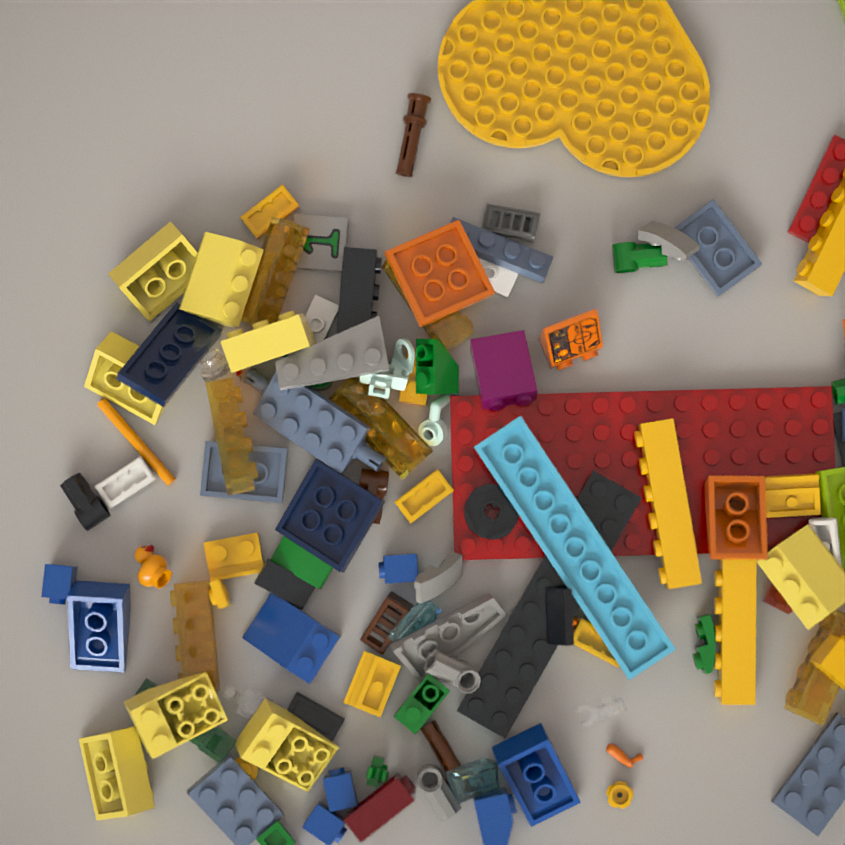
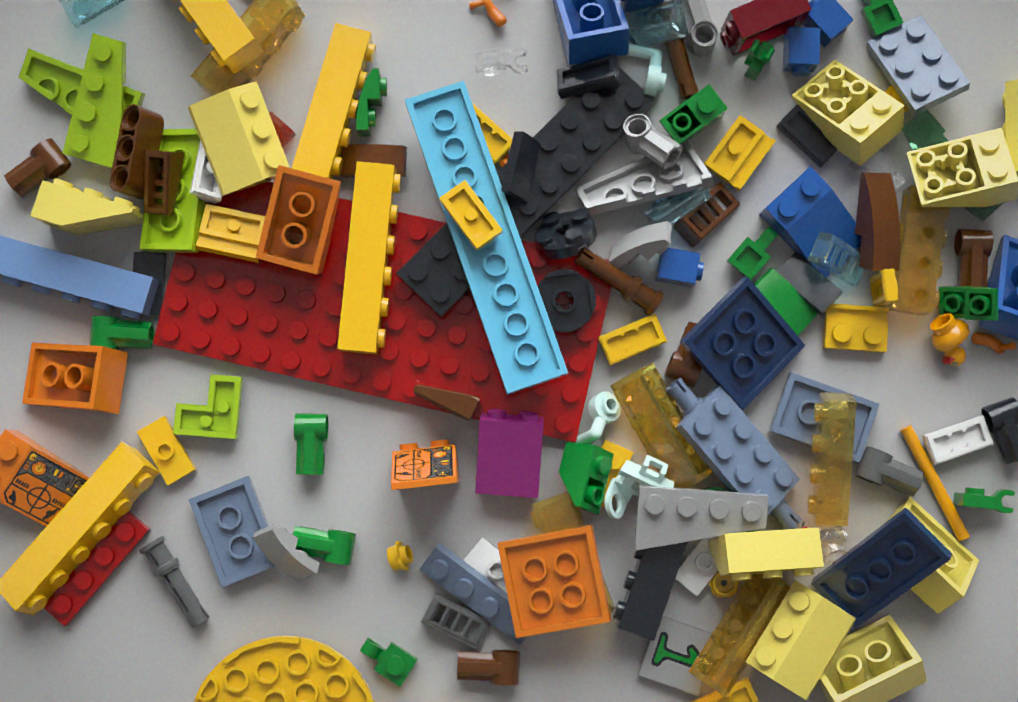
camera: 170 degrees left, 0 degrees up
(100, 437) = (976, 498): none -> green plate
(112, 575) = (992, 342): none -> orange piece
(144, 600) = (969, 302): none -> green slope
(148, 649) = (973, 249): none -> reddish brown piece
(183, 440) = (881, 469): none -> dark grey piece
(238, 651) = (878, 222): none -> reddish brown slope
(281, 611) = (822, 250): none -> clear light blue slope
(295, 304) = (720, 591): none -> yellow plate
(339, 594) = (751, 255): none -> green plate
(437, 539) = (630, 287): none -> reddish brown pin
(462, 731) = (655, 79): none -> light aqua plate
(466, 194) = (498, 666): none -> reddish brown piece
(499, 579) = (564, 233): none -> black plate
(521, 716) = (587, 76): none -> black tile
(554, 176) = (392, 663): none -> green plate
(561, 400) = (454, 402): none -> reddish brown slope
(572, 262) = (400, 556): none -> yellow plate
(591, 559) = (470, 215): none -> yellow plate
(675, 344) = (311, 435): none -> green piece
(688, 596) = (373, 153): none -> reddish brown slope
(757, 339) = (219, 416): none -> lime plate
(762, 202) = (167, 569): none -> dark grey pin
(793, 300) = (166, 450): none -> yellow plate

